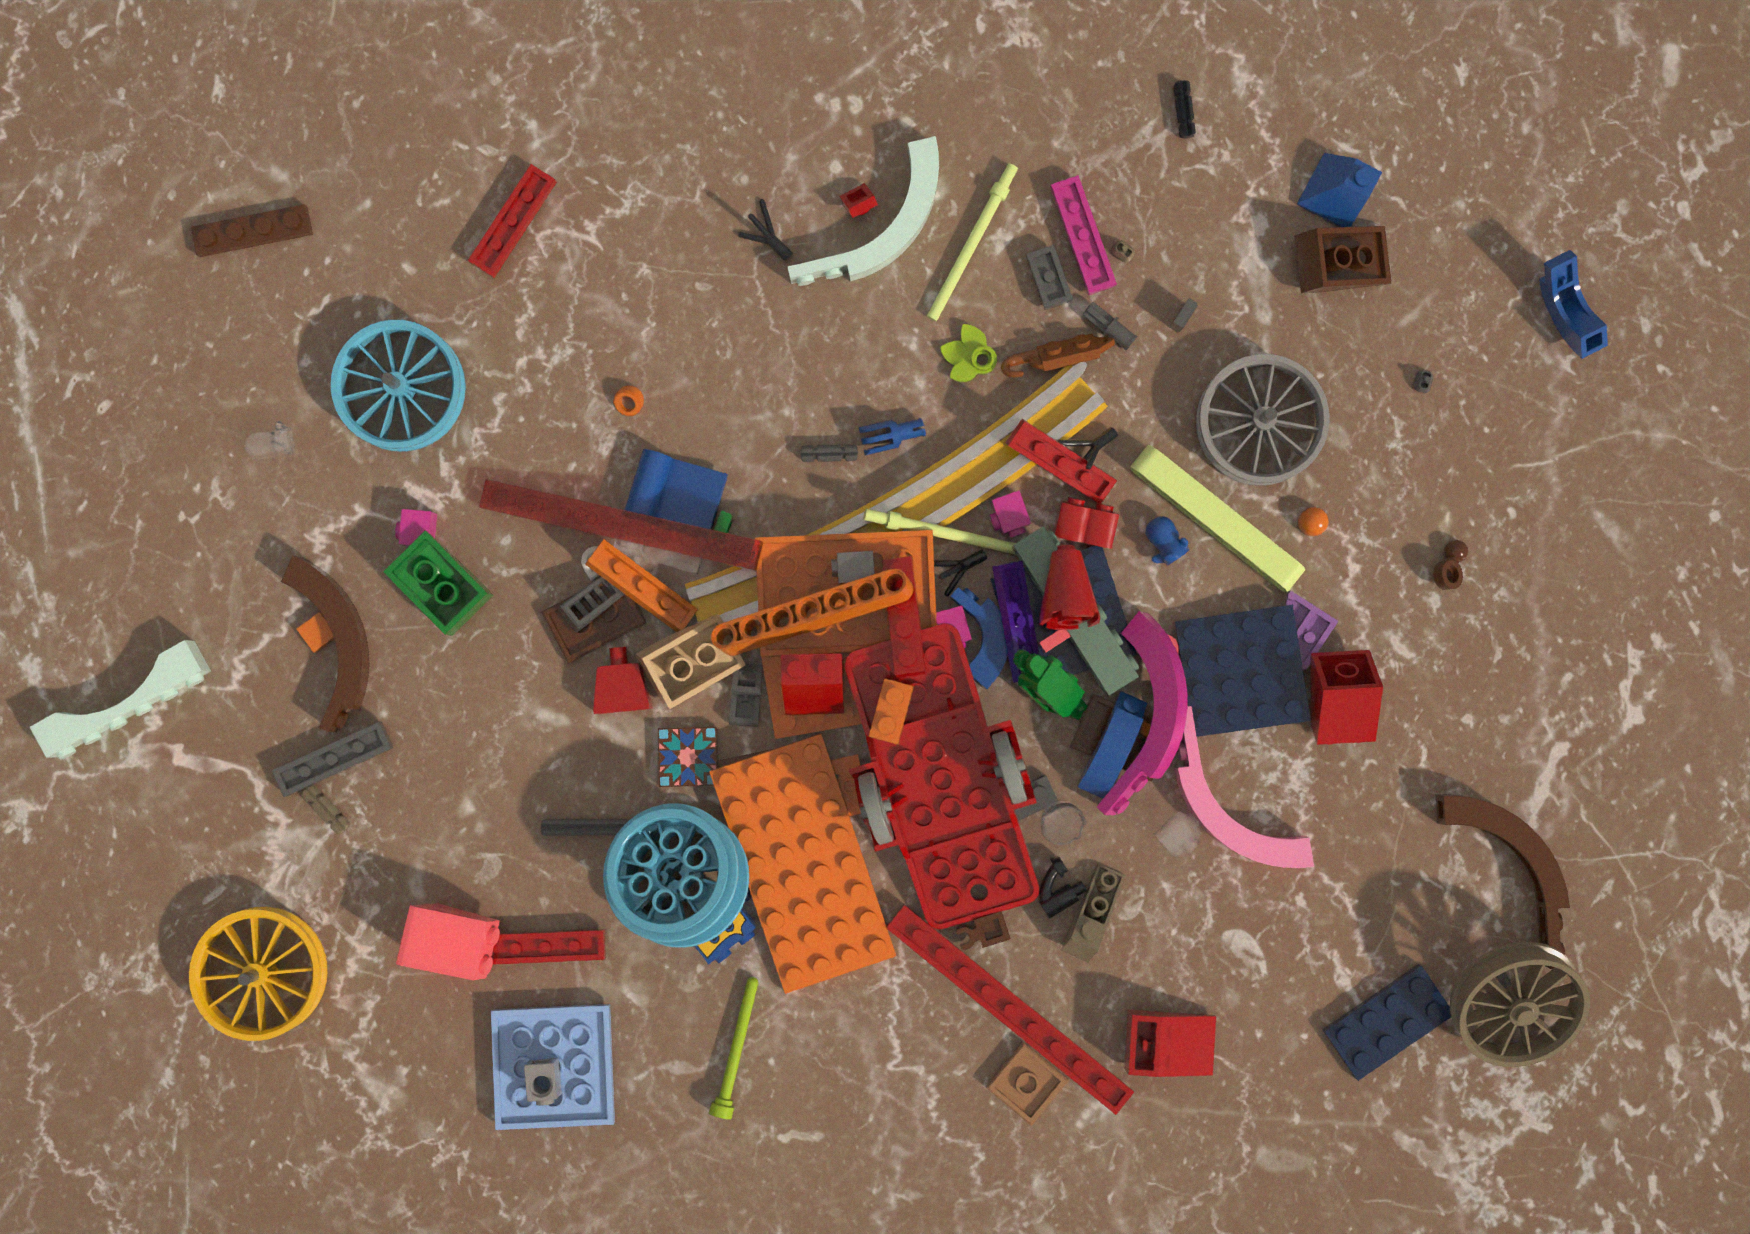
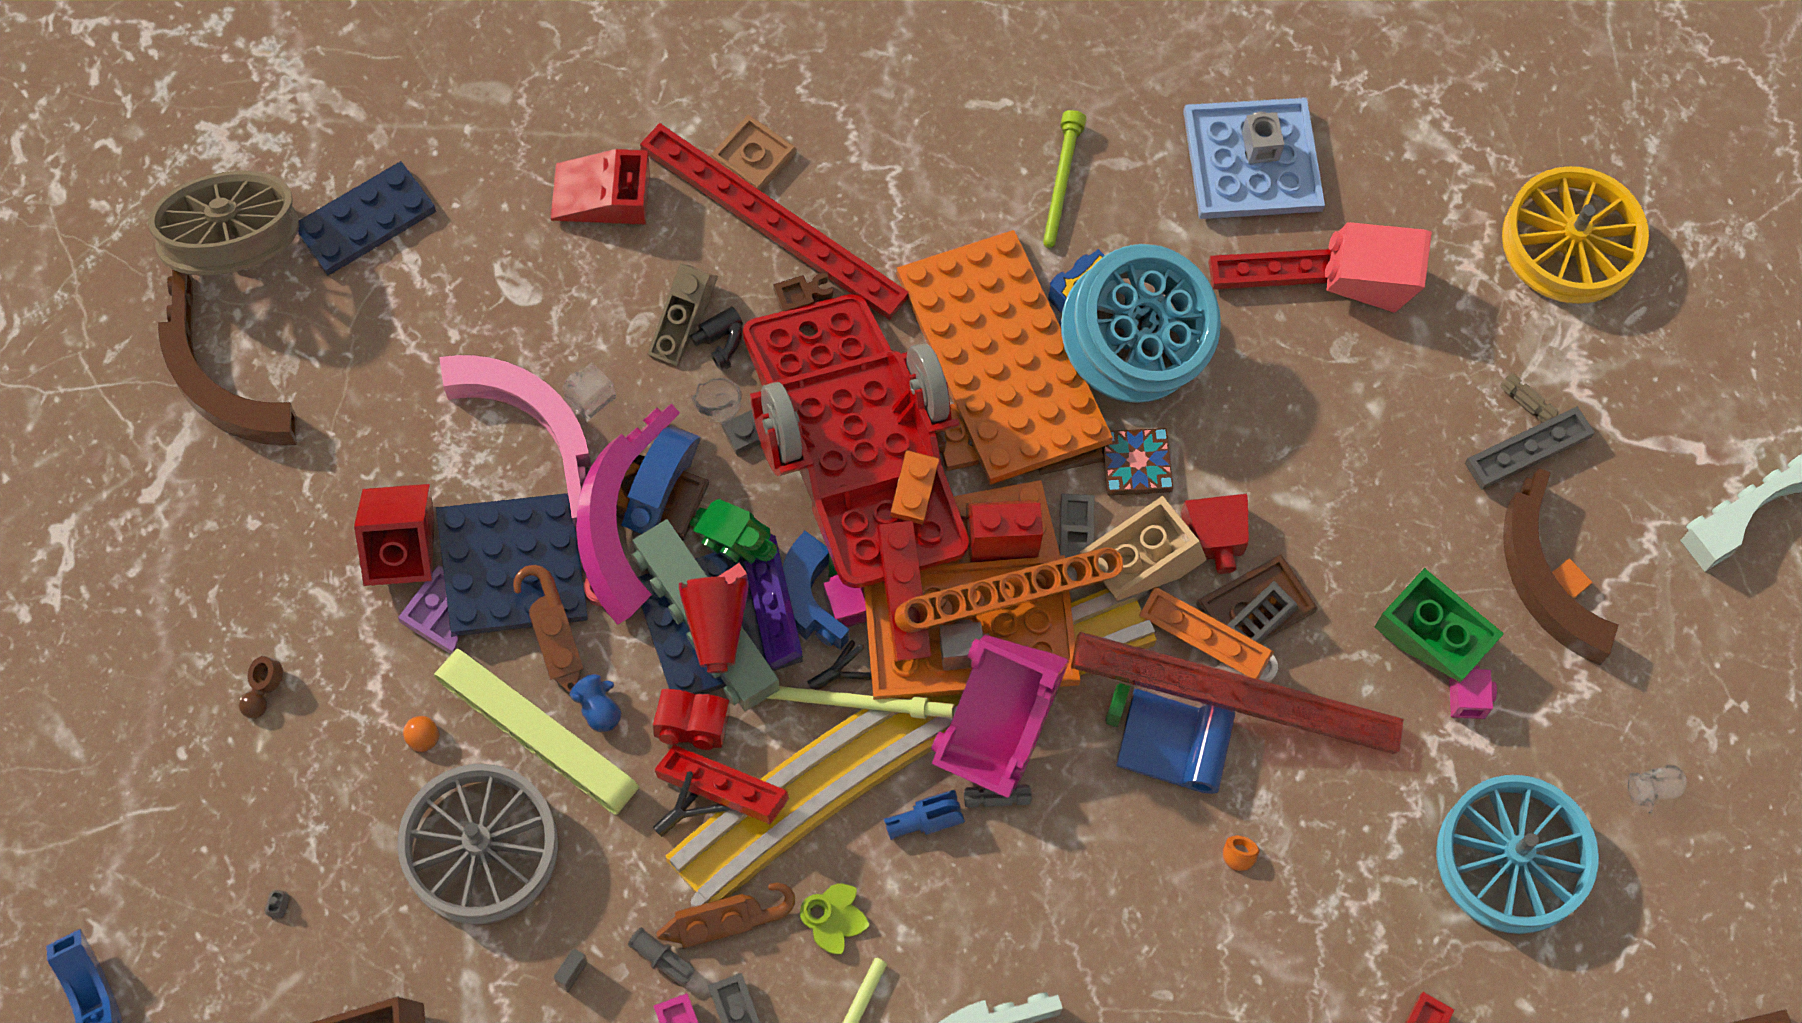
camera: 170 degrees right, 20 degrees down
(577, 827) = (1244, 387): dark grey axle -> none
(826, 505) = (999, 713): none -> dark pink windscreen
(1010, 515) = (781, 728): dark pink brick -> none
(1205, 605) = (552, 629): none -> dark orange plate

